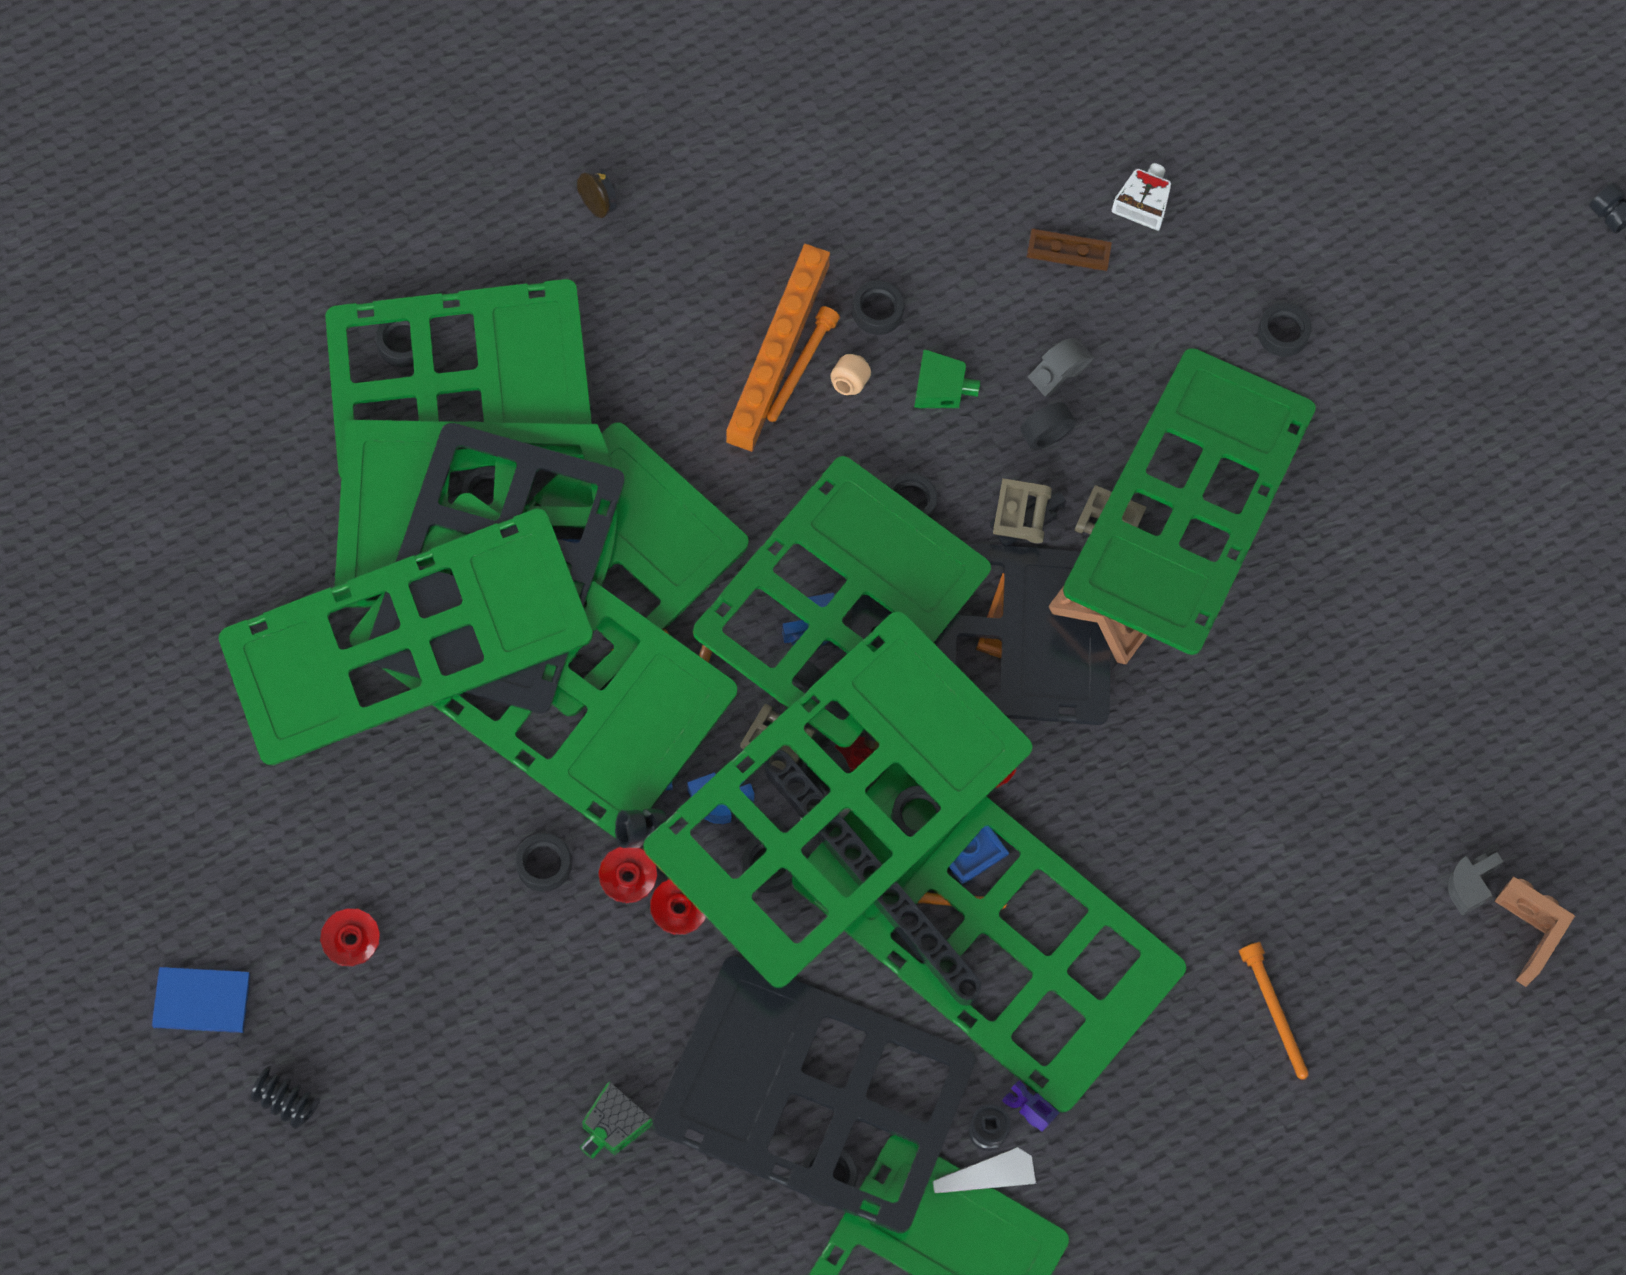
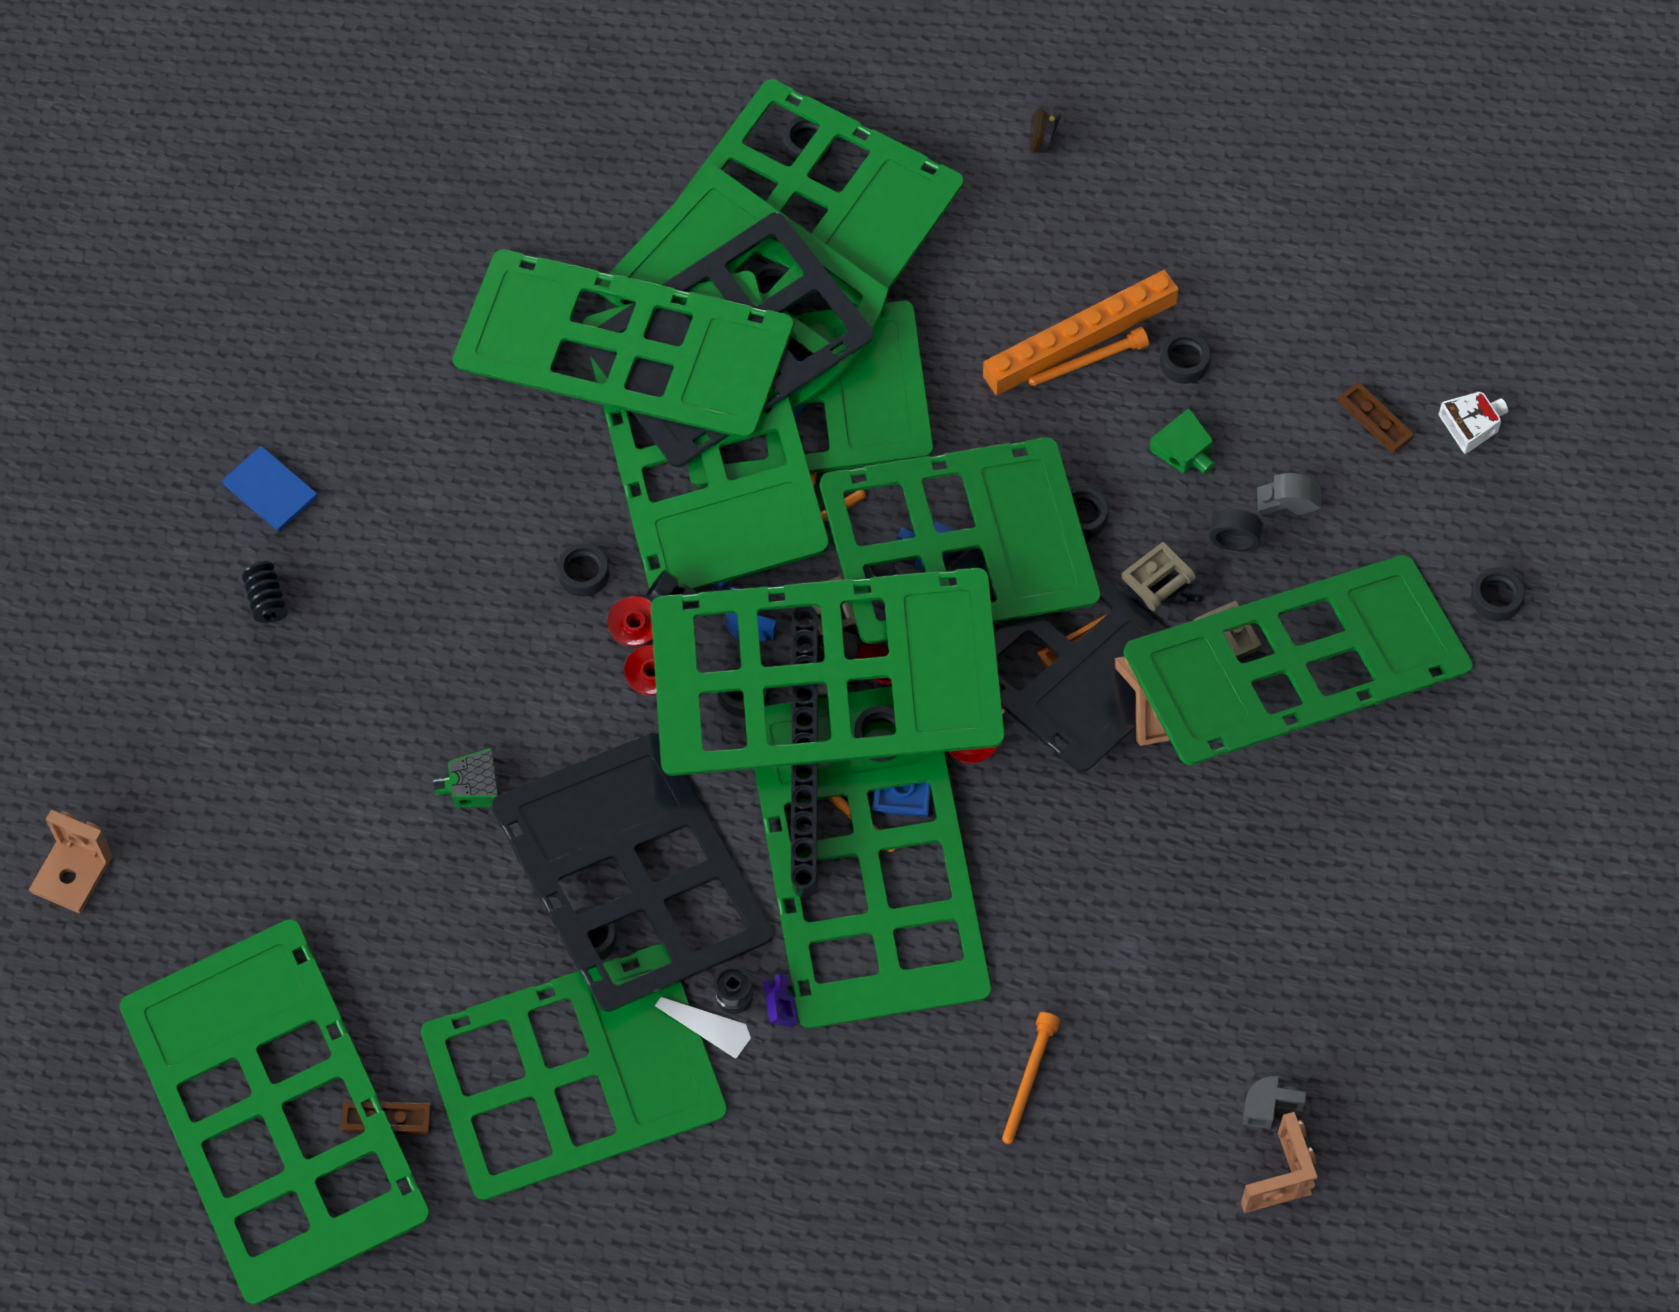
camera: 45 degrees right, 5 degrees down
(348, 923) = (400, 510): red dish -> none
(850, 374) = (1118, 390): light nougat head -> none

